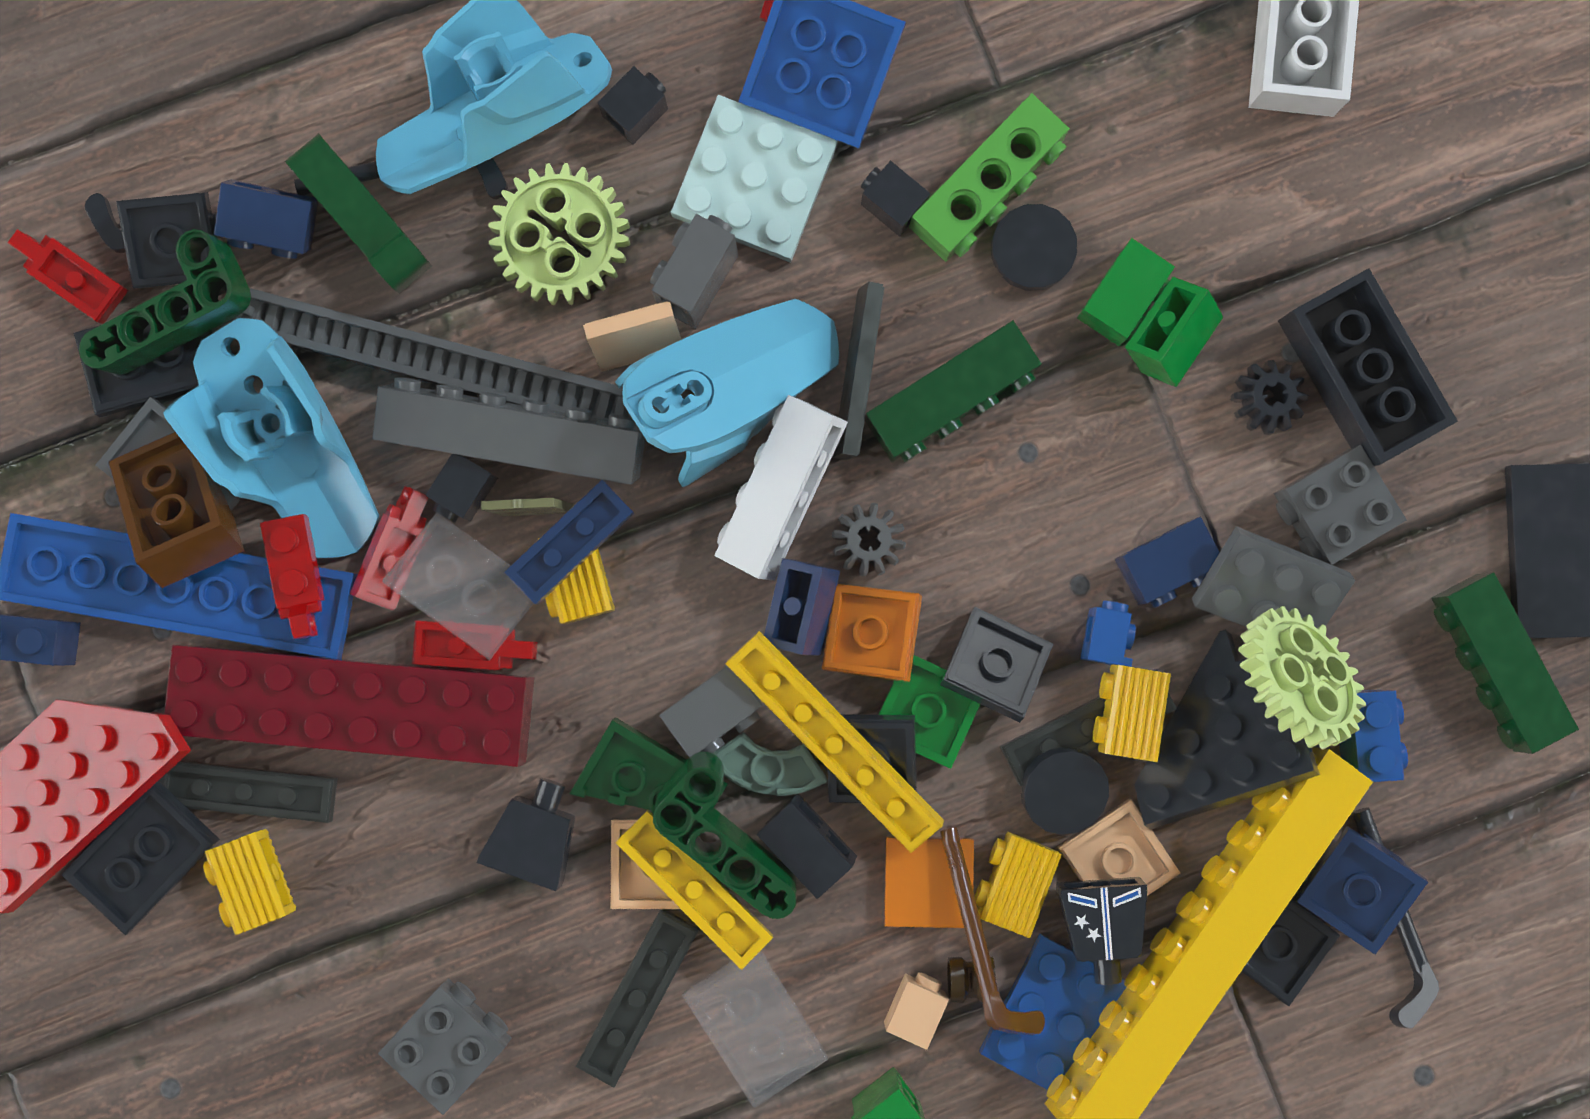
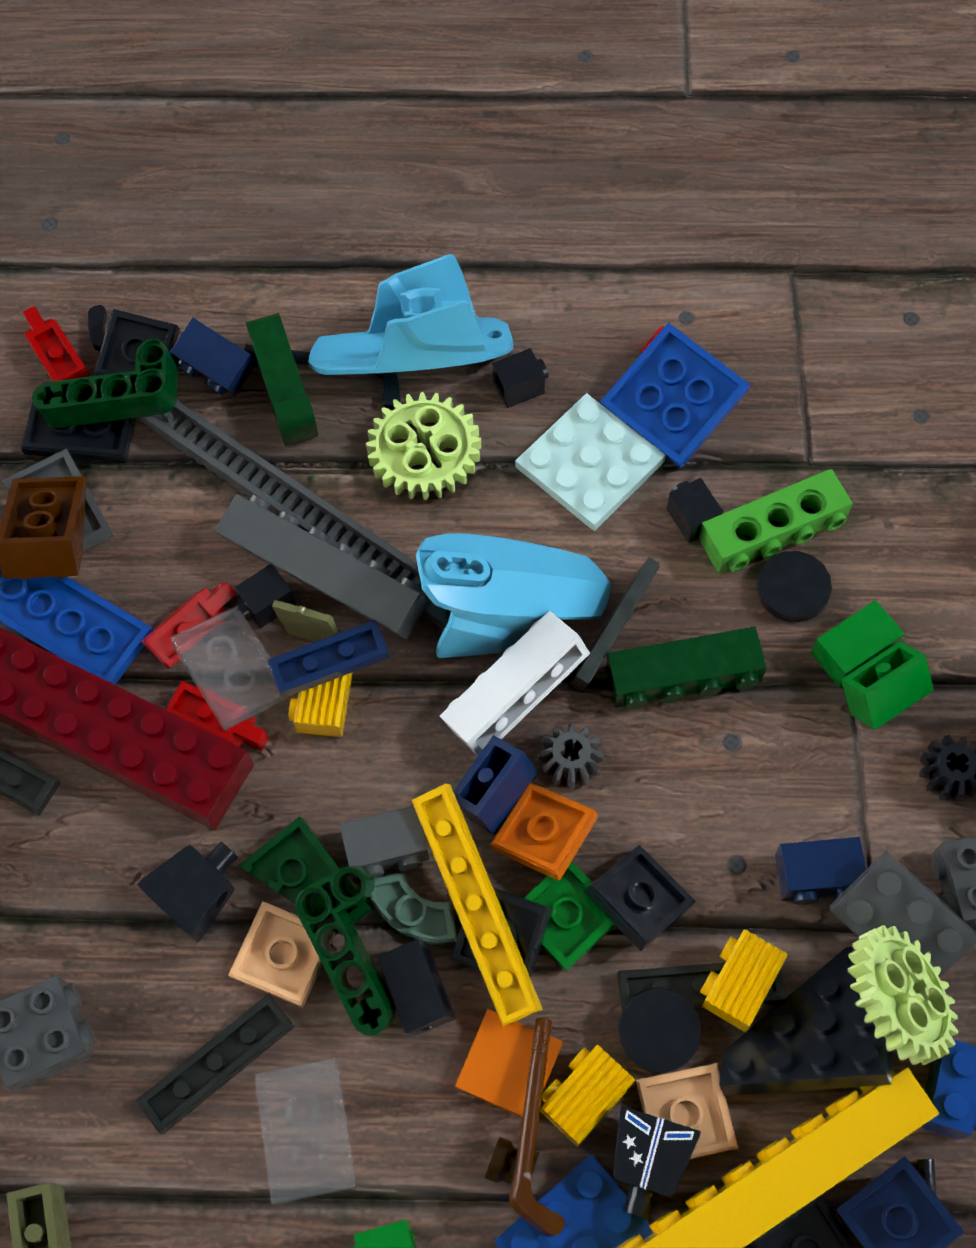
camera: 25 degrees right, 20 degrees down
(273, 442) = (142, 514): medium azure piece -> none
(294, 572) = (107, 608): red hinge -> none
(632, 335) = (435, 519): light nougat tile -> none
(696, 268) = (516, 499): dark grey brick -> none
(696, 892) = (305, 984): yellow plate -> none
(916, 1009) = (453, 1171): light nougat brick -> none
(1108, 634) = (746, 909): blue brick -> none

